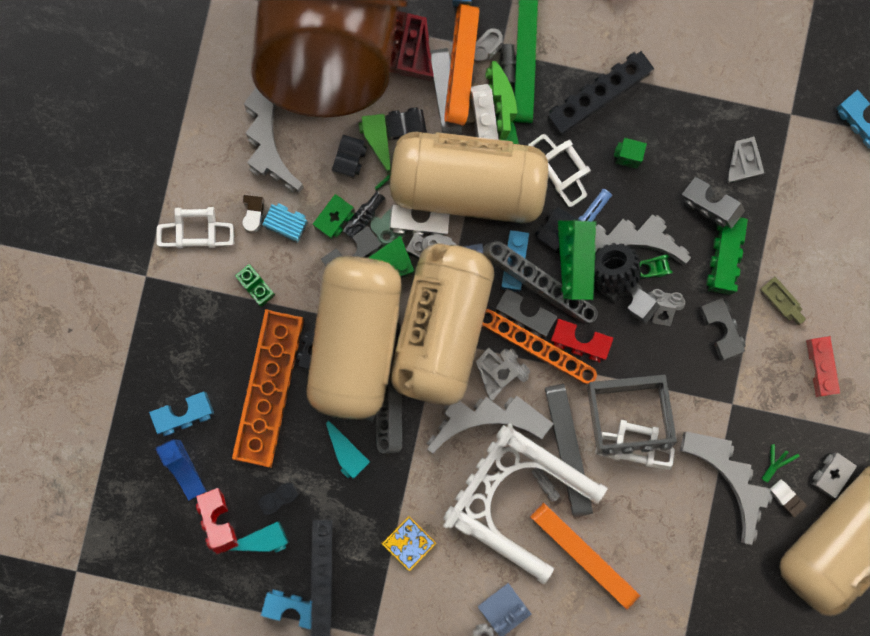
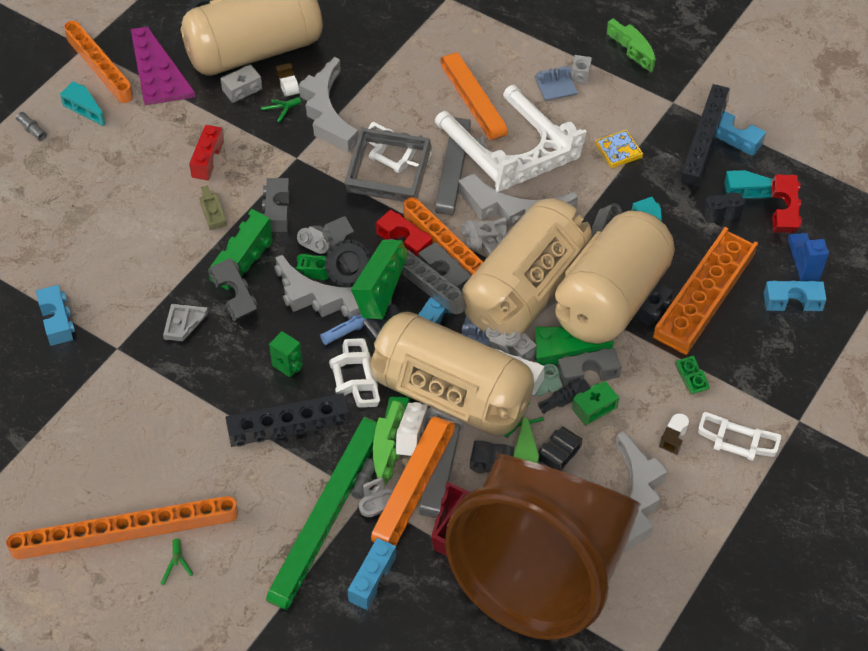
camera: 160 degrees left, 30 degrees down
(285, 223) = (645, 413): medium azure brick -> none

